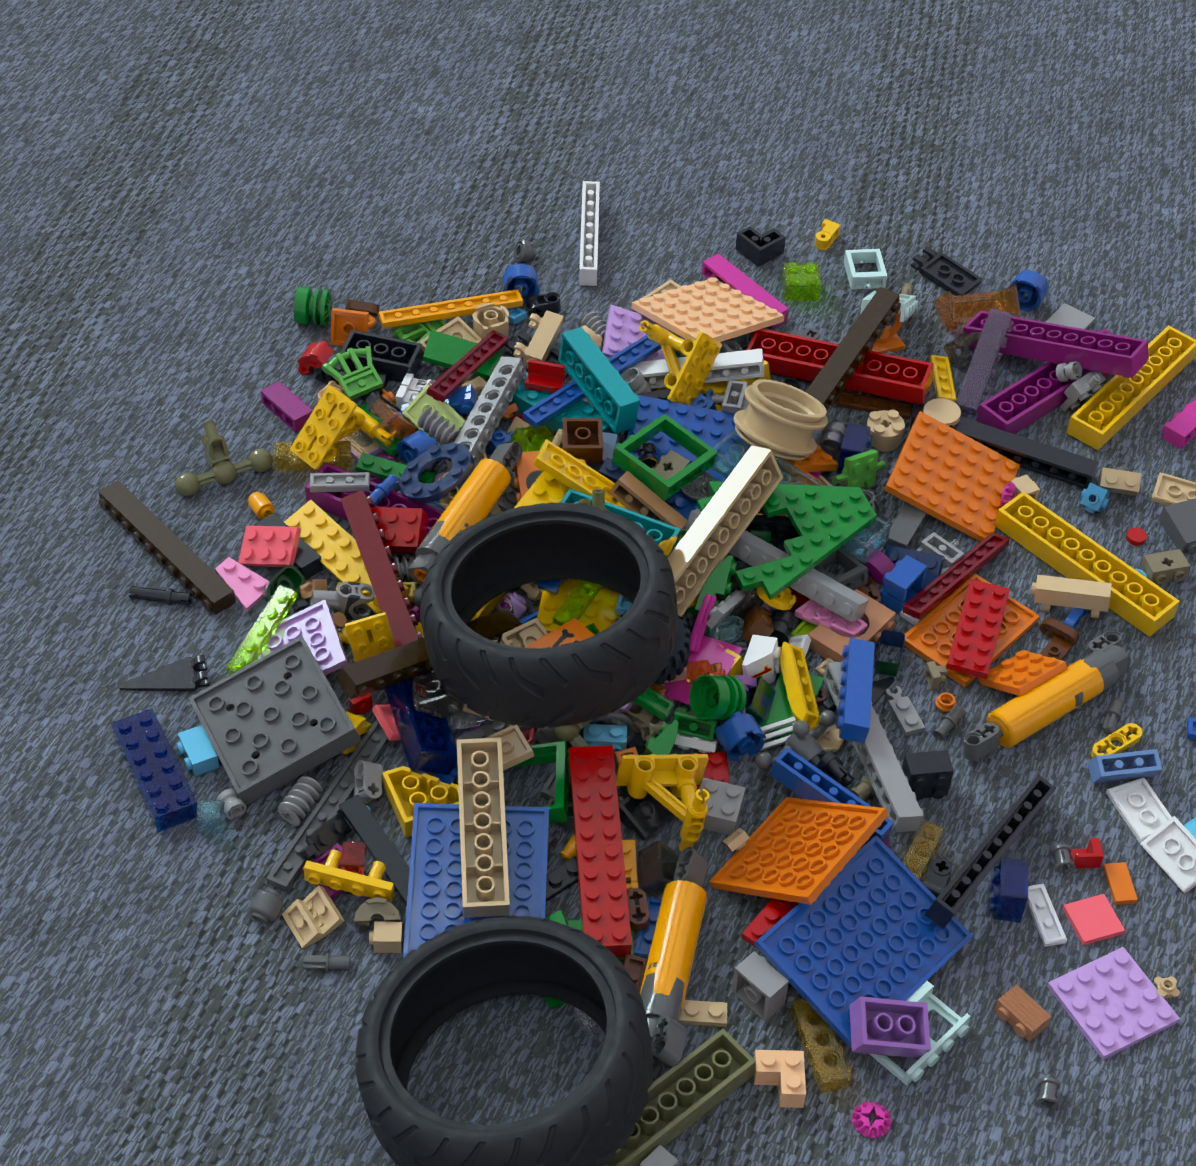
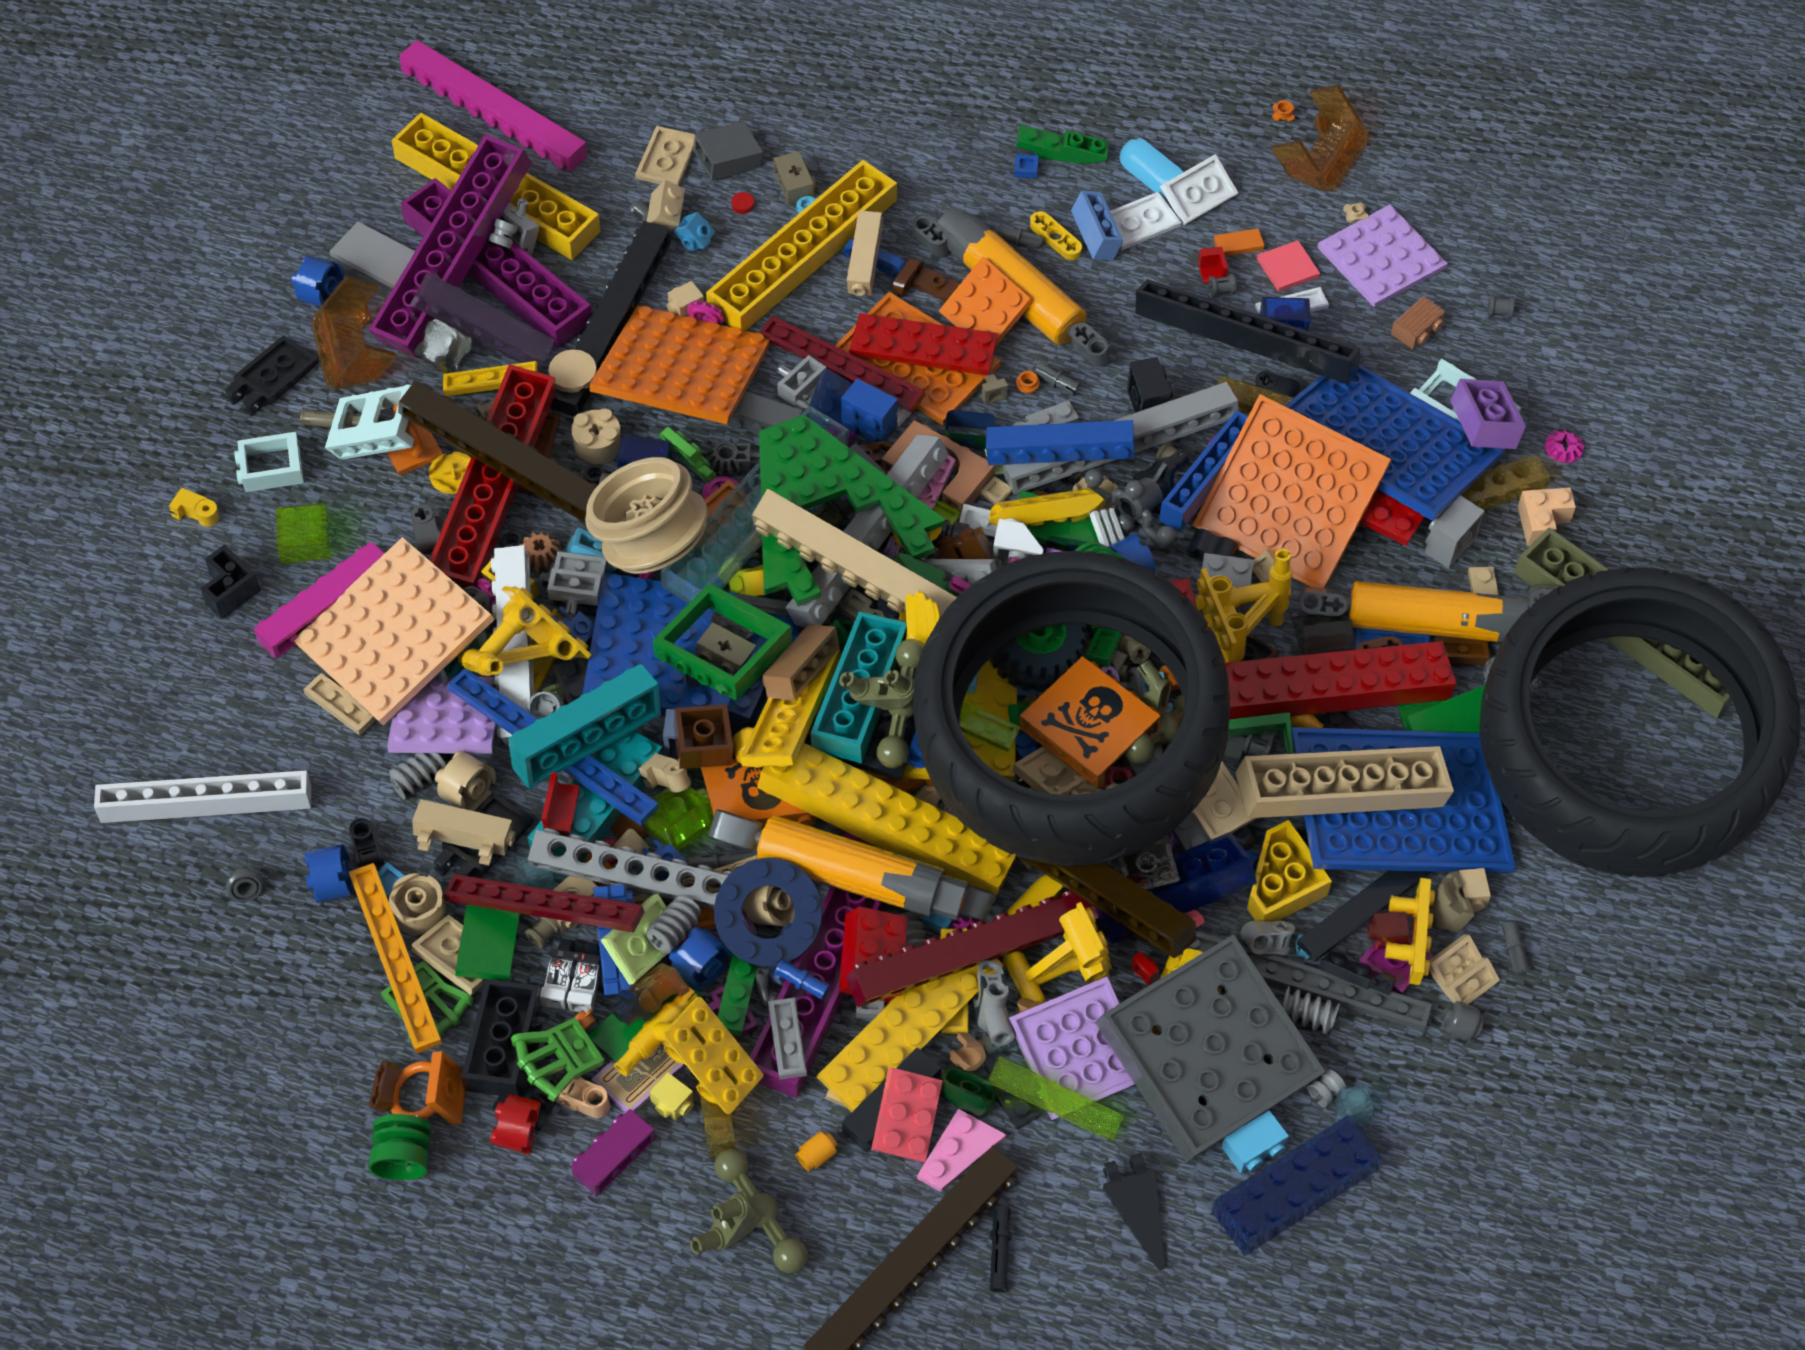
camera: 95 degrees left, 10 degrees up
(758, 806) = (1206, 542): none -> black axle

